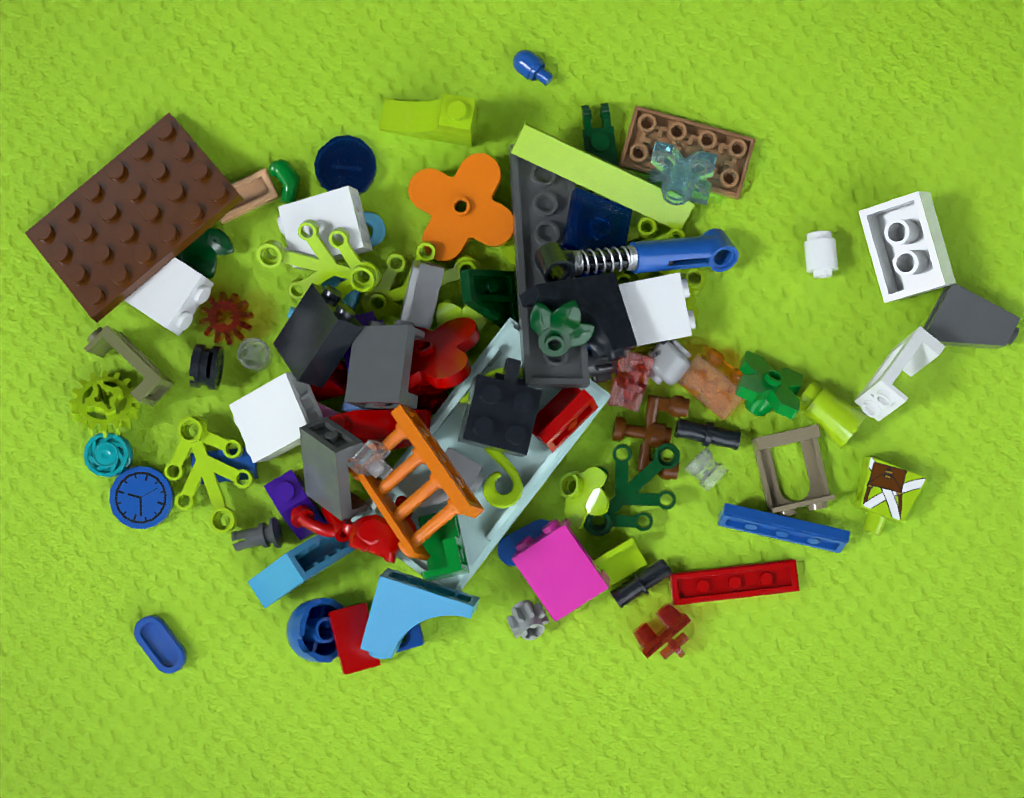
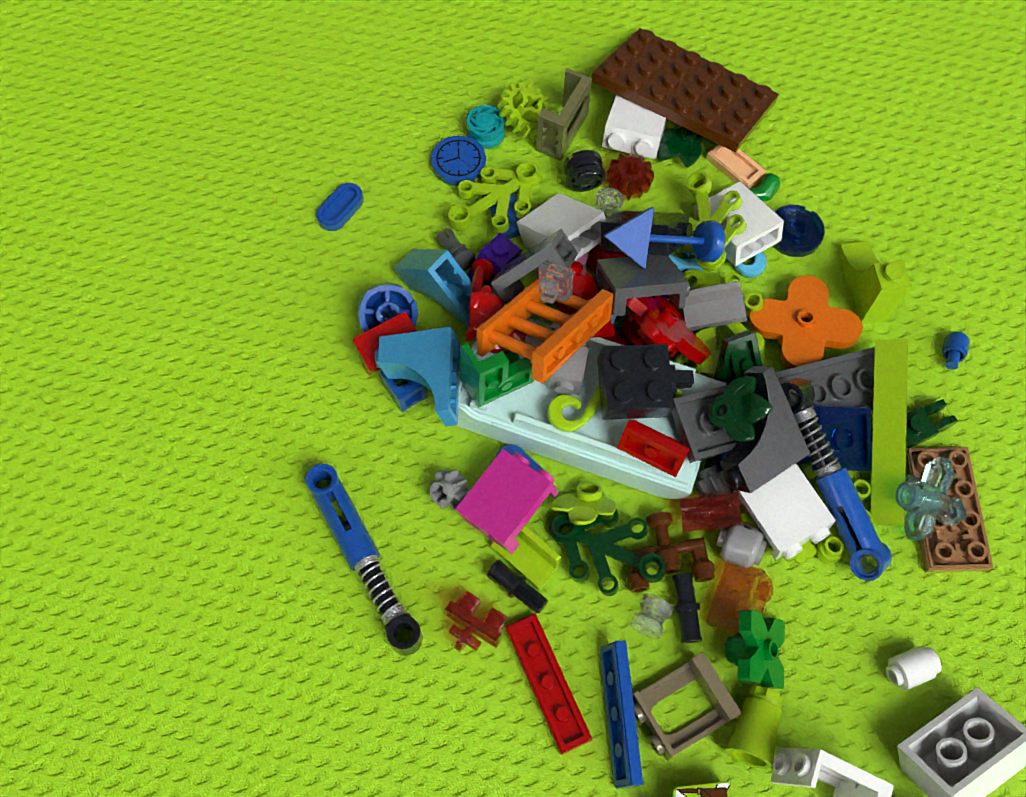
camera: 75 degrees right, 20 degrees down
(348, 361) = (635, 235): none -> piece
(565, 721) = (362, 556): none -> piece

